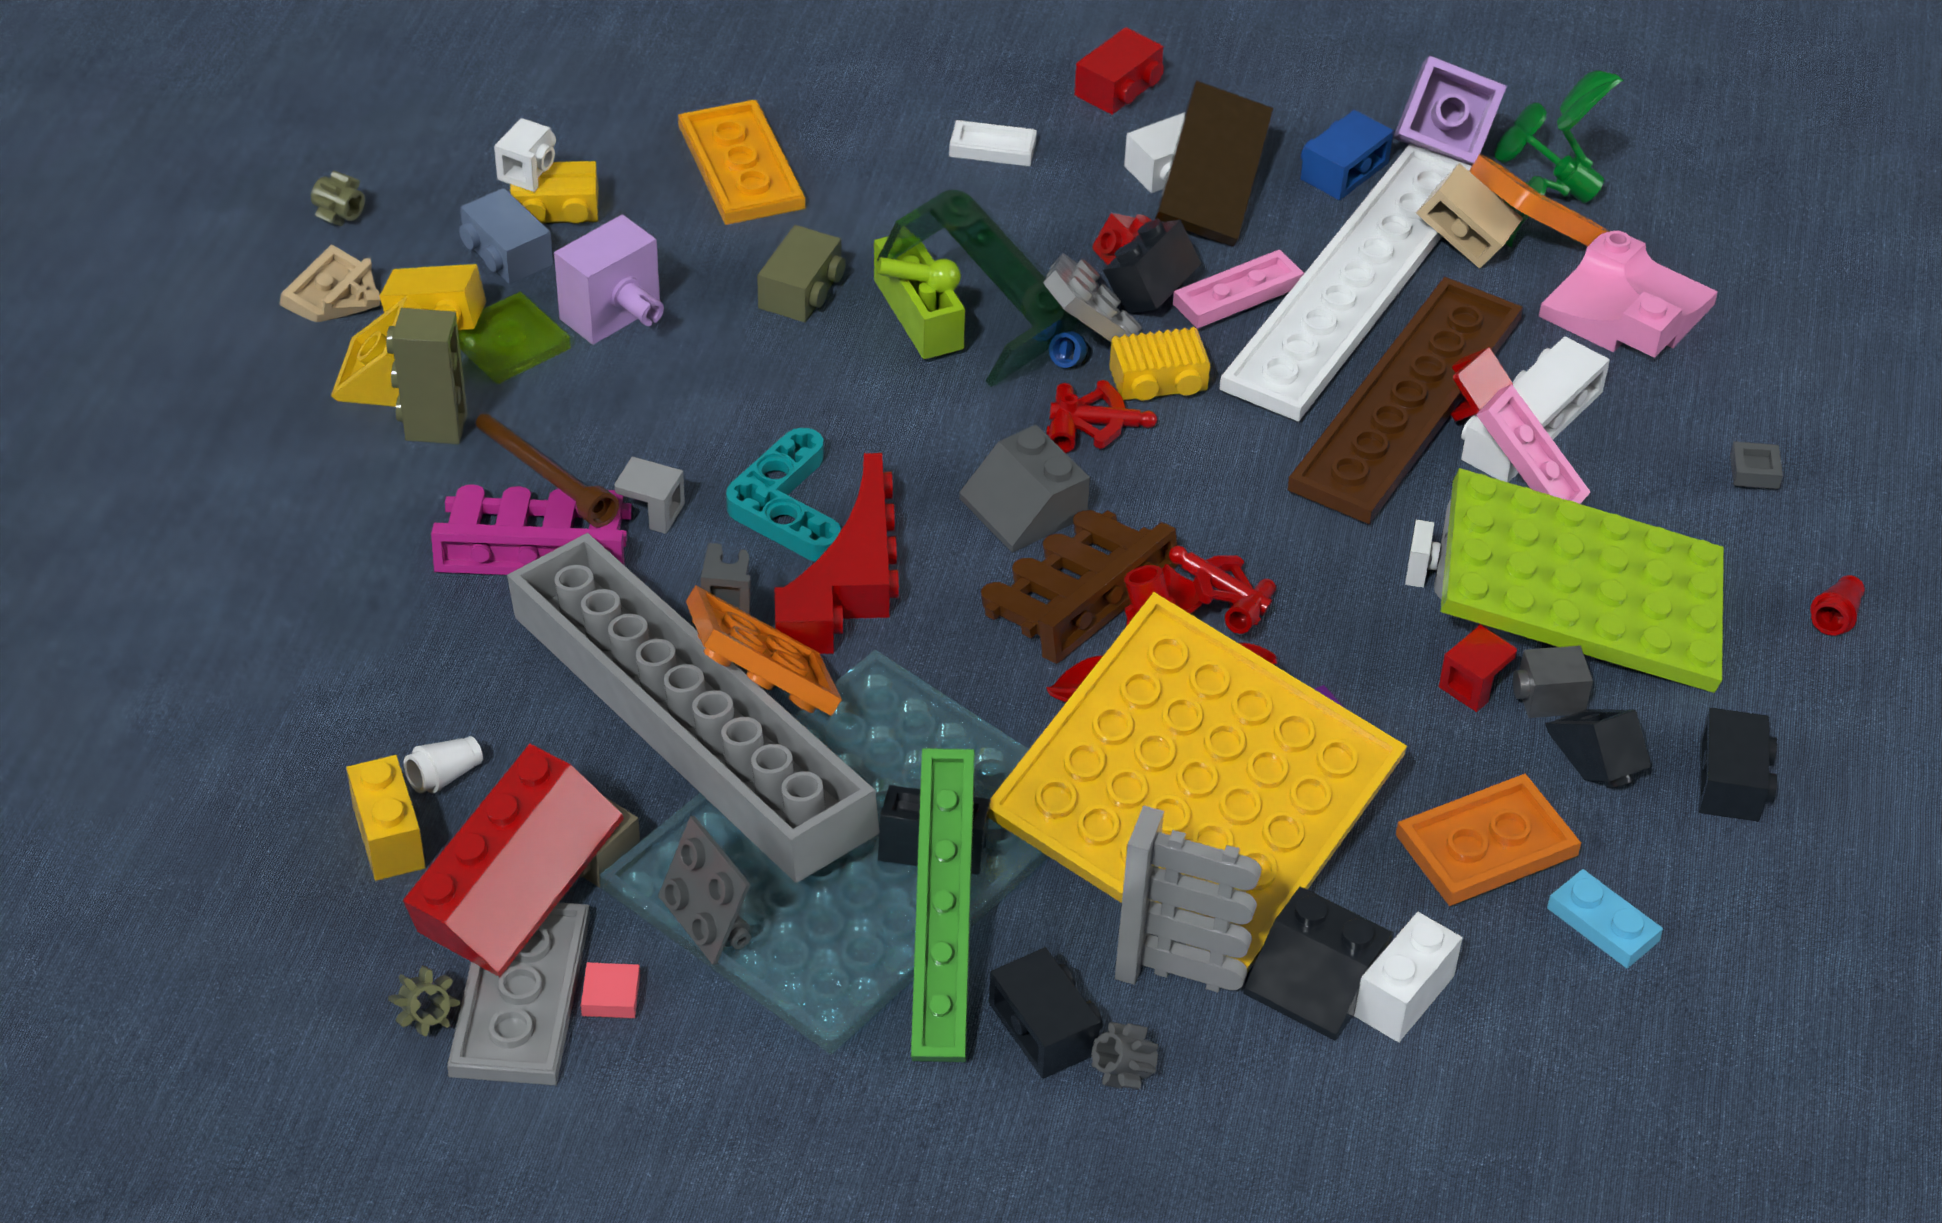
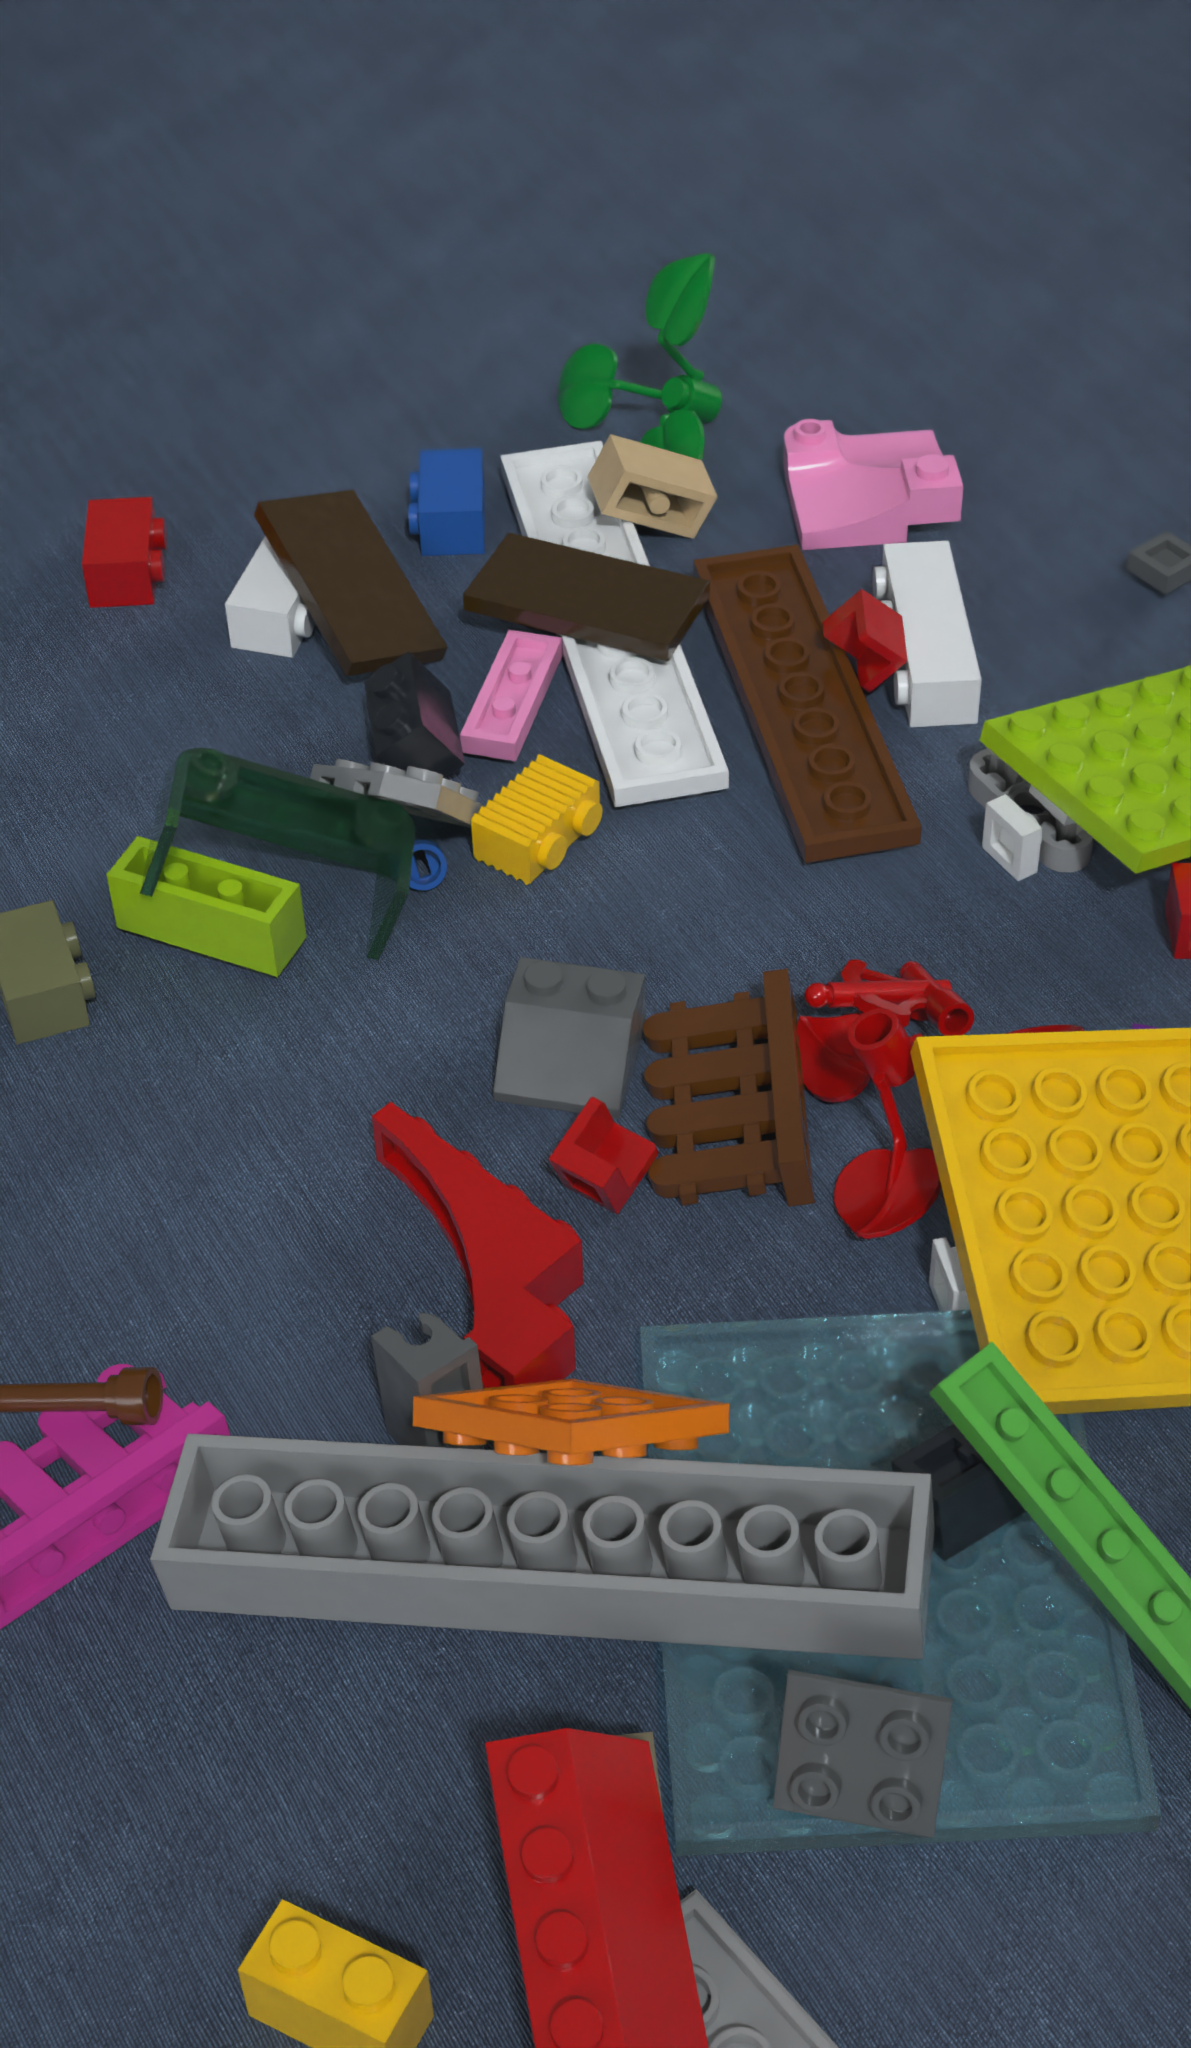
camera: 40 degrees left, 0 degrees up
(440, 763) = (313, 1860): white cone -> none
(610, 990) = (842, 1973): coral tile -> none
(658, 486) = (167, 1325): light grey panel -> none
(754, 492) = (294, 1242): teal beam -> none
(939, 275) = (231, 863): lime bar -> none
(963, 557) = (602, 1158): none -> red panel
(992, 143) = (68, 705): white tile -> none
(1073, 413) = (512, 930): red piece -> none
(1116, 233) = (337, 718): red bracket -> none
(1345, 257) = (587, 596): none -> dark brown tile
(1449, 111) = (522, 395): lavender brick -> none
(1530, 446) = (997, 662): bright pink plate -> none
(1533, 203) = (697, 435): orange beam -> none

